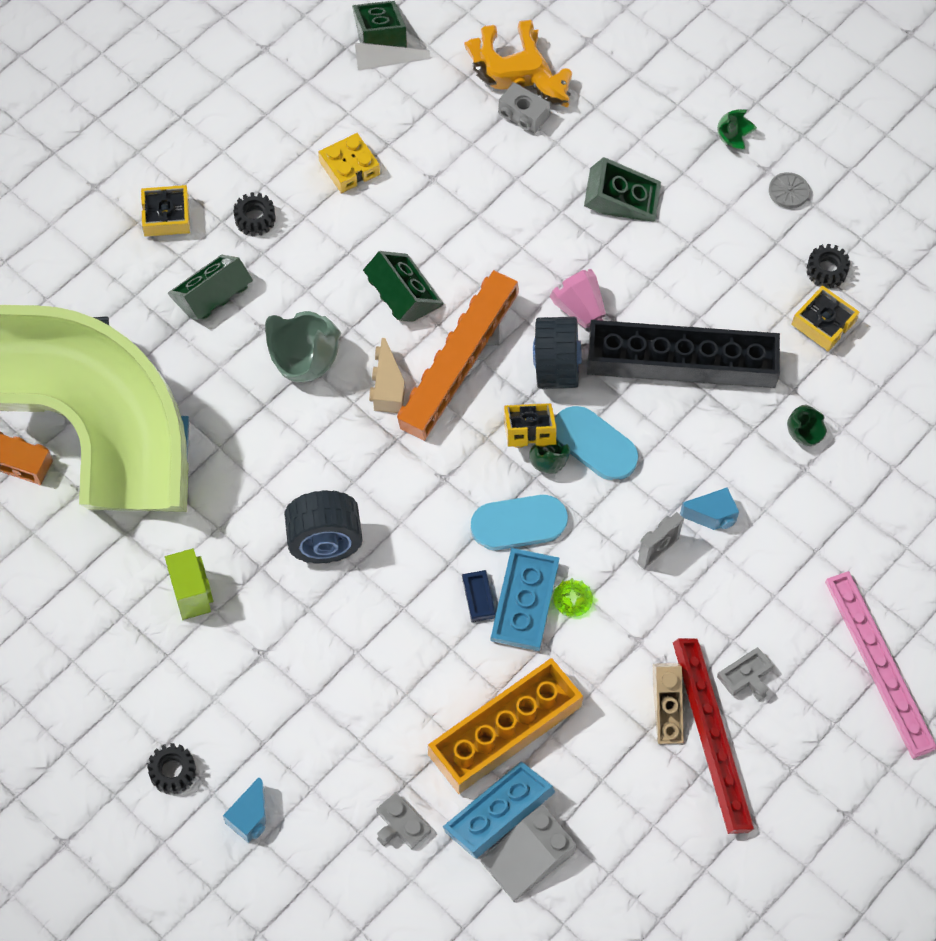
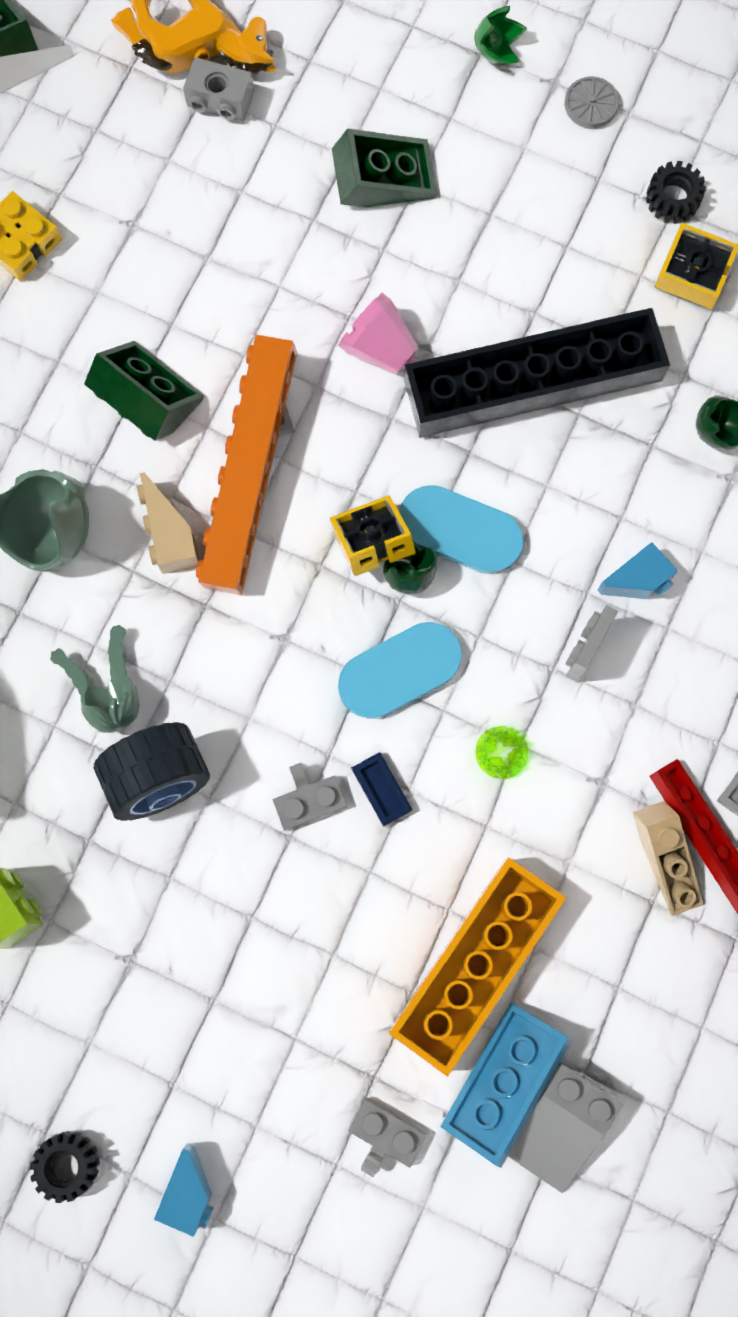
camera: 15 degrees left, 15 degrees up
(318, 477) = (109, 707): none -> sand green hair
(424, 587) = (309, 800): none -> light grey plate
(525, 599) = (443, 776): dark azure plate -> none
(557, 352) = (376, 424): black wheel -> none

